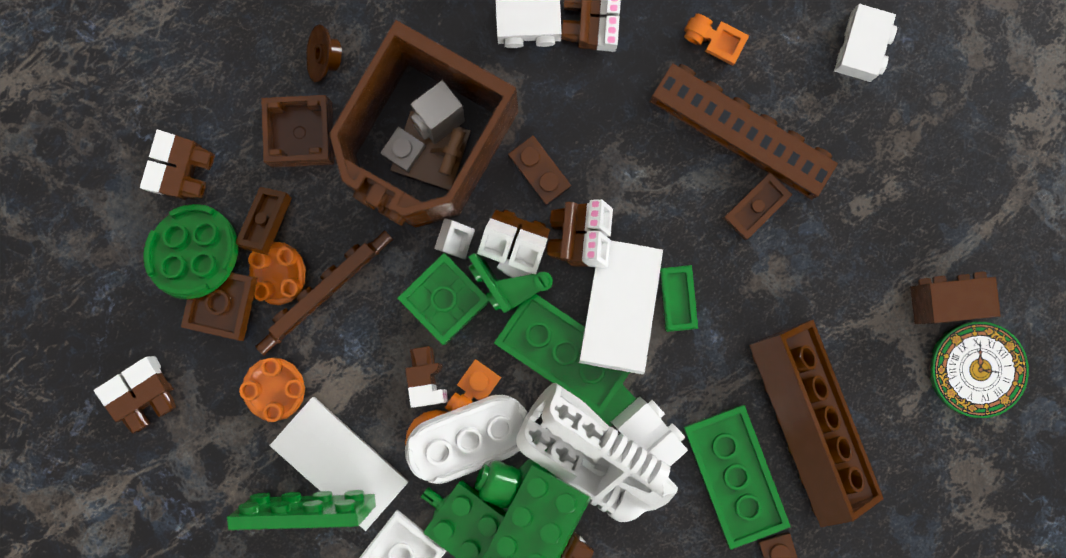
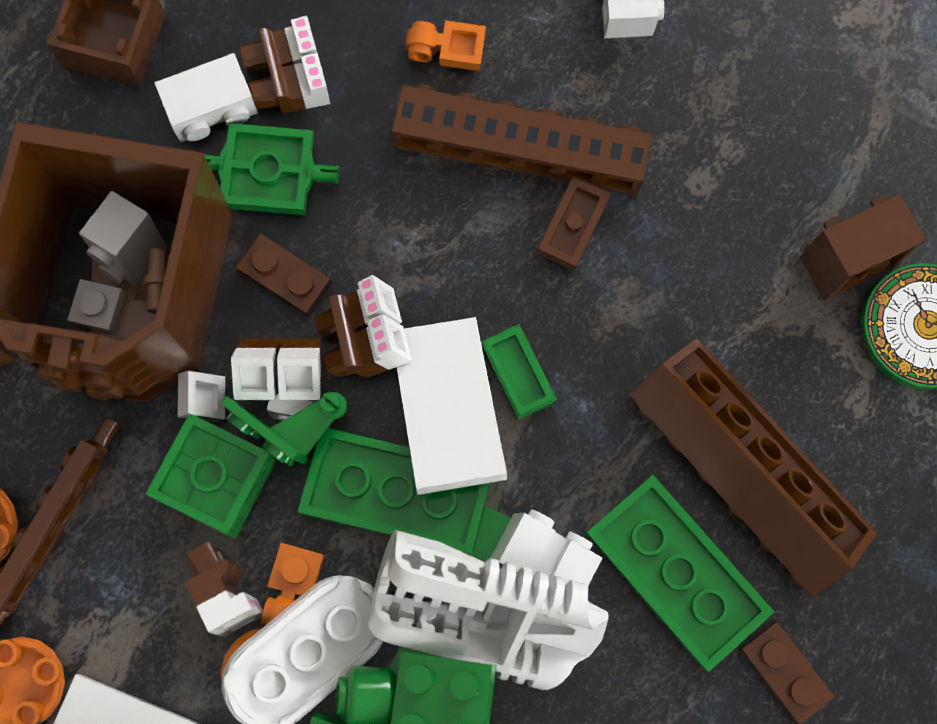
camera: 25 degrees left, 10 degrees down
(554, 88) = (269, 168): none -> green plate

